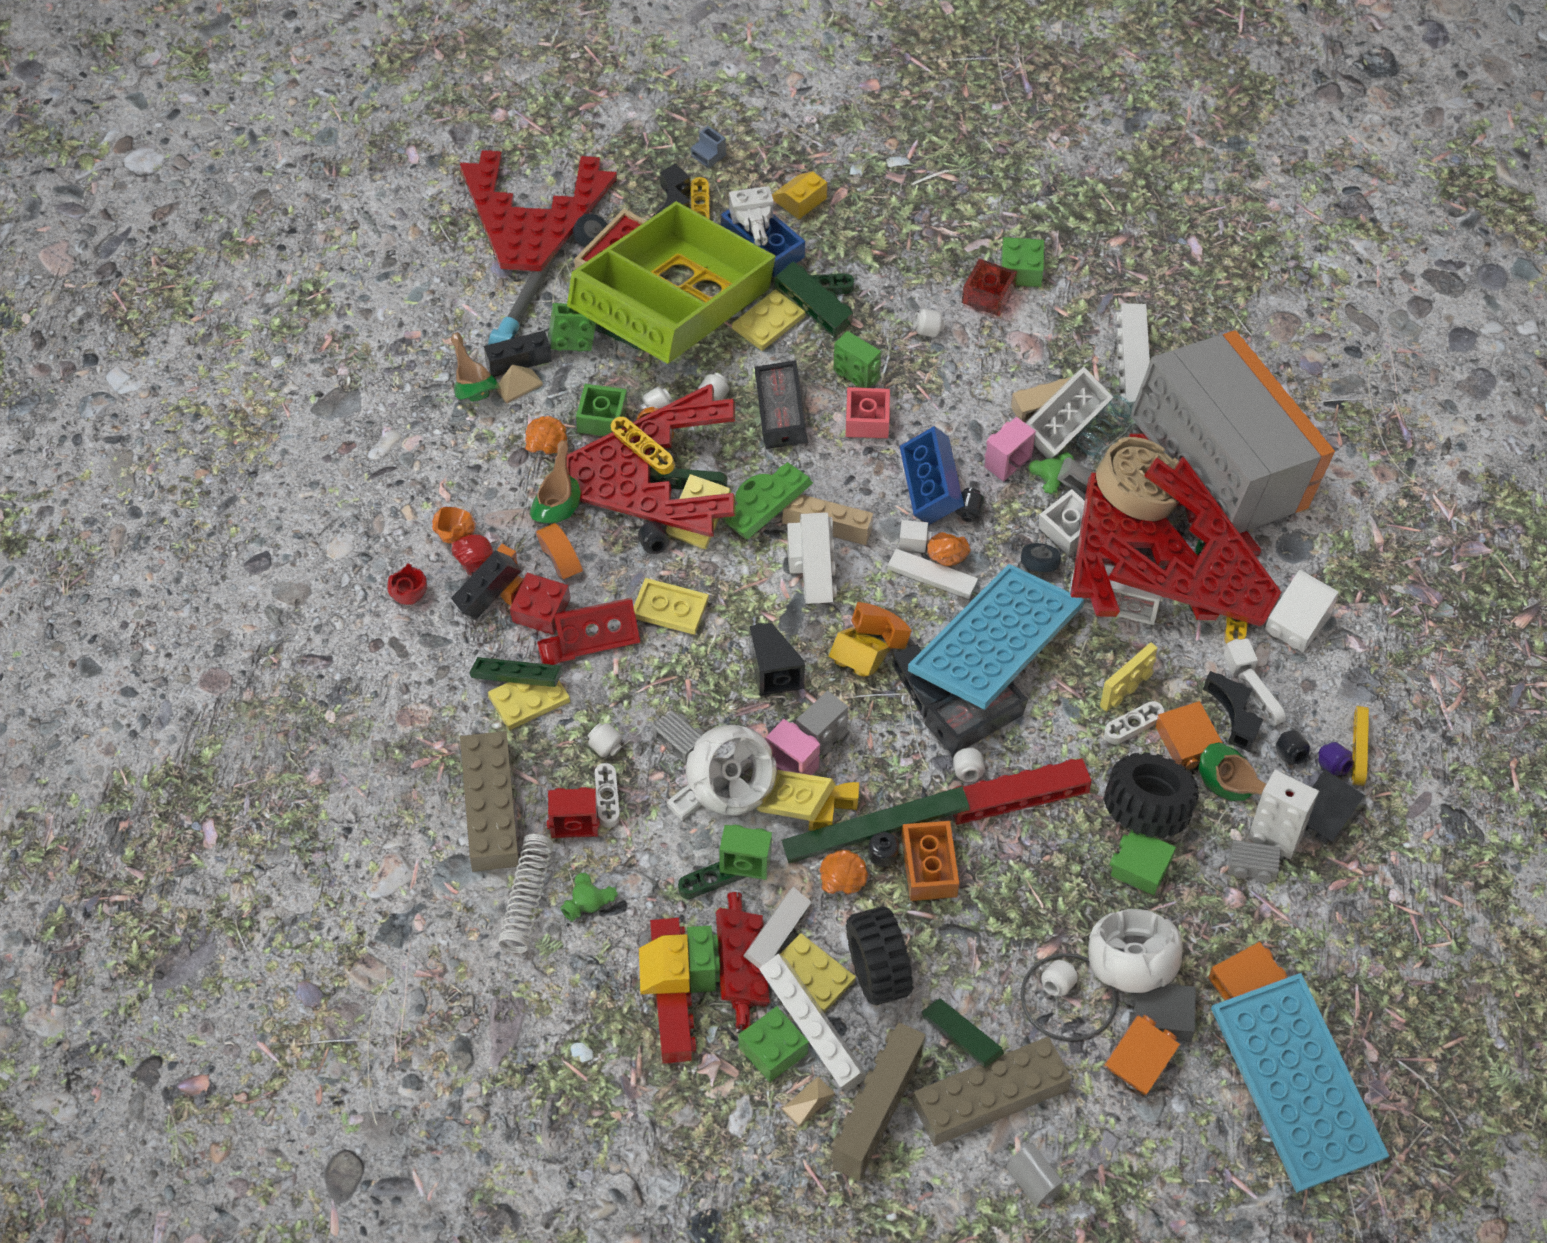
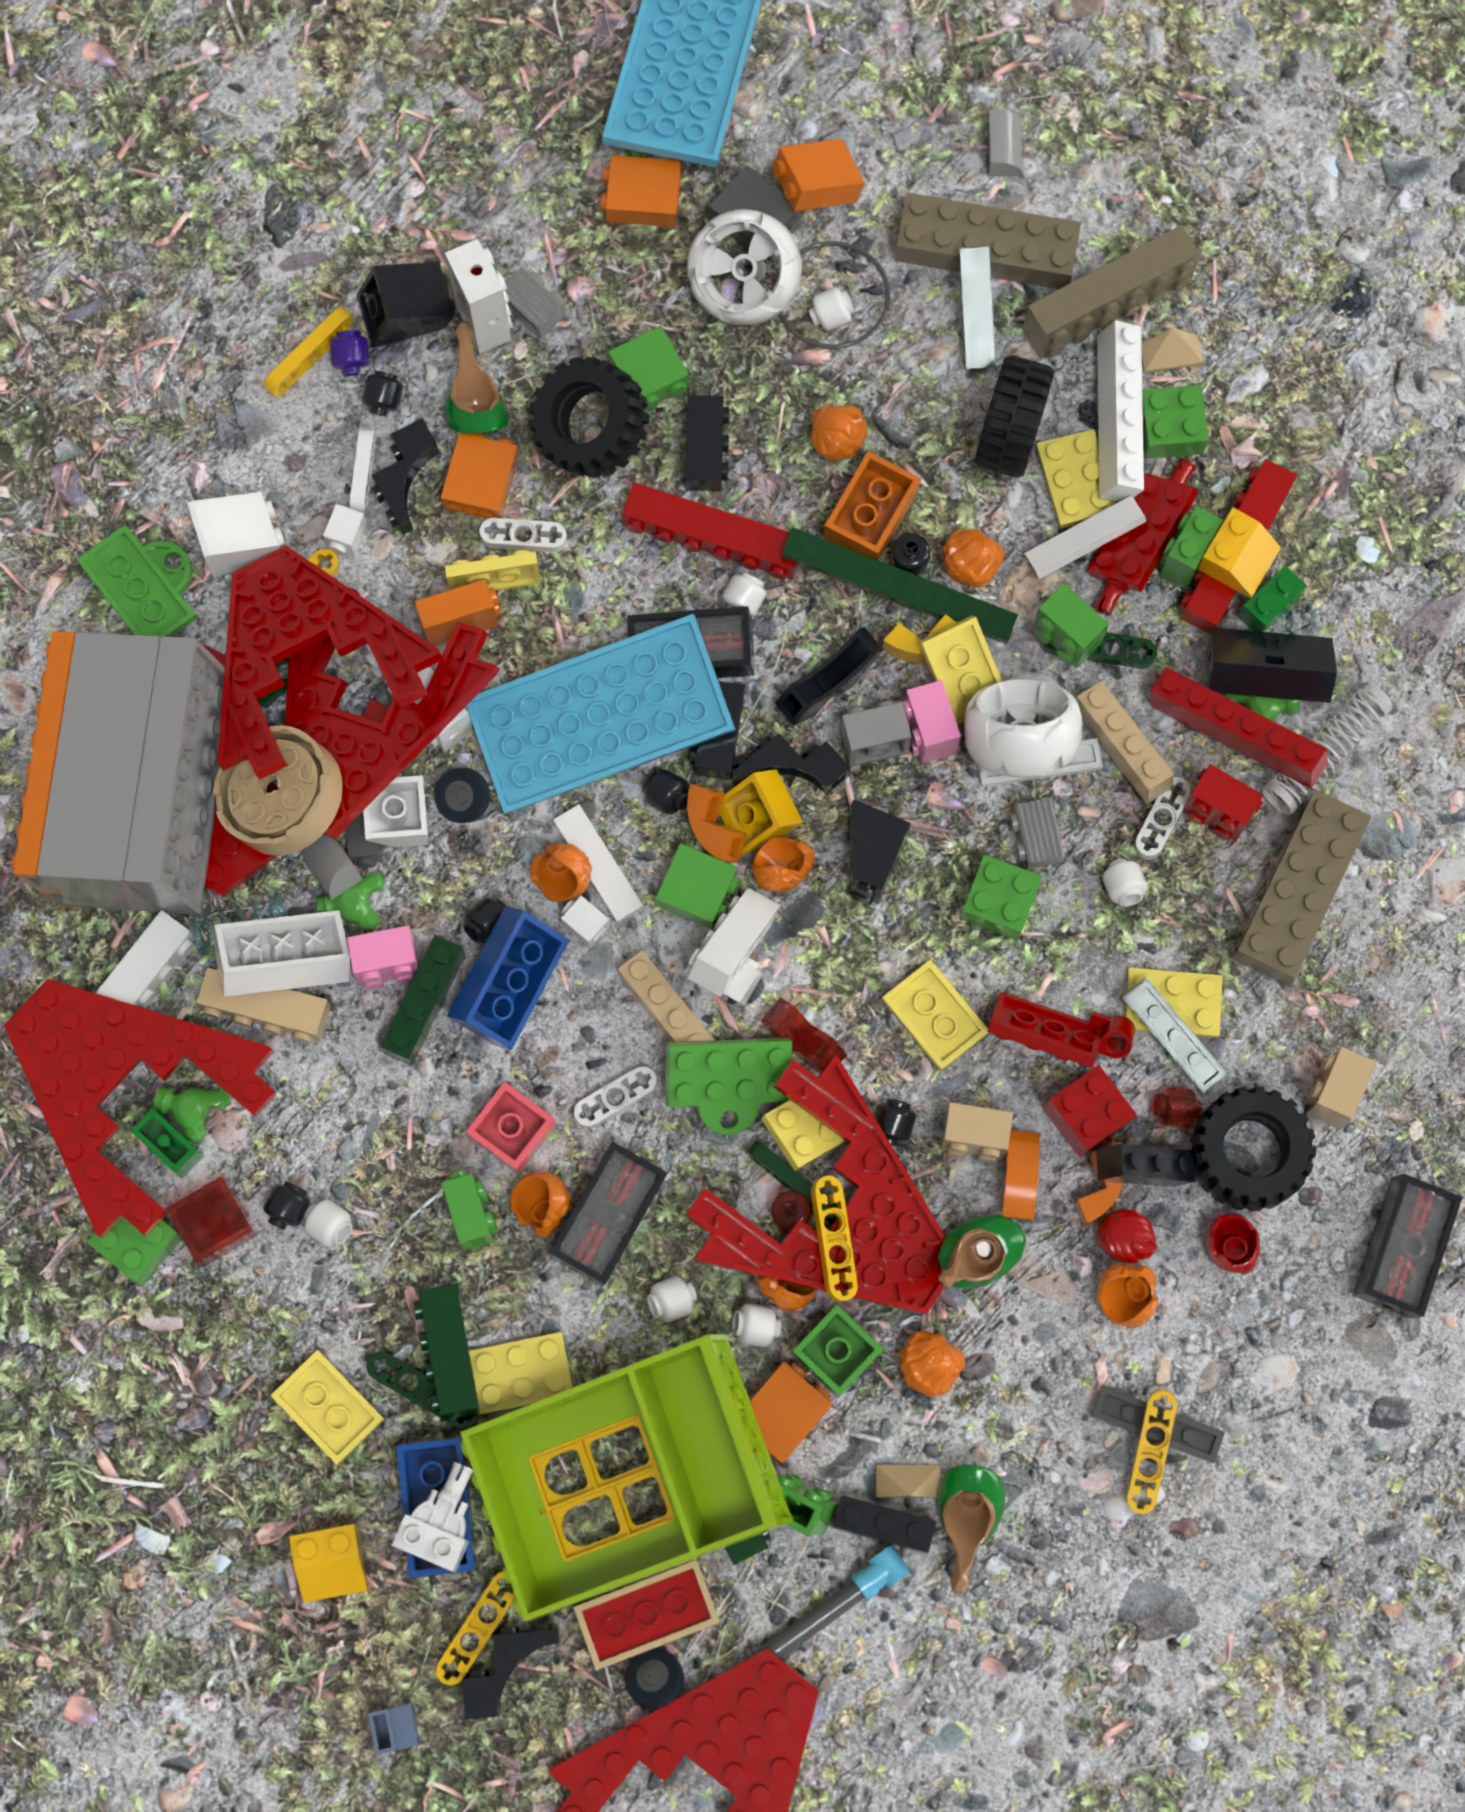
camera: 145 degrees left, 20 degrees up
(298, 640) = (1407, 1246): none -> brick
(389, 460) = (1154, 1451): none -> yellow beam
(393, 695) = (1341, 1087): none -> tan piece
(394, 480) = (1186, 1434): none -> dark grey plate
(421, 612) = (1286, 1125): none -> black tyre
(488, 637) = (1176, 1107): none -> clear red head
(592, 858) = (1239, 727): none -> red brick
(597, 914) = (1271, 665): none -> black brick
(601, 551) = (976, 1132): none -> tan piece
(612, 367) = (788, 1410): none -> orange brick
(623, 965) = (1272, 600): none -> green brick
(661, 815) = (1125, 742): none -> tan brick
(676, 686) = (1001, 897): none -> bright green brick
(682, 456) = (784, 1202): none -> clear red head
(732, 551) = (808, 1042): none -> clear red brick
(822, 624) = (782, 864): none -> orange hair
(823, 393) = (540, 1202): none -> orange hair
(823, 457) = (639, 1091): none -> white beam
(857, 251) = (327, 1407): none -> light yellow plate
(863, 583) = (697, 886): none -> bright green brick
(867, 687) = (820, 767): none -> black arch
(876, 740) = (837, 674): none -> black arch
(923, 625) = (666, 791): none -> black head
(957, 317) = (286, 1205): none -> black head
(970, 446) = (423, 1000): none -> dark green brick
(991, 900) = (838, 431): none -> orange hair
(1045, 306) = (167, 1143): none -> green brick
(1049, 331) = (190, 1108): none -> bright green animal
(1069, 841) = (706, 443): none -> black brick
(1125, 310) = (77, 1054): none -> red wing
(1130, 640) = (467, 604): none -> orange brick
(1328, 558) = (140, 584): none -> bright green plate

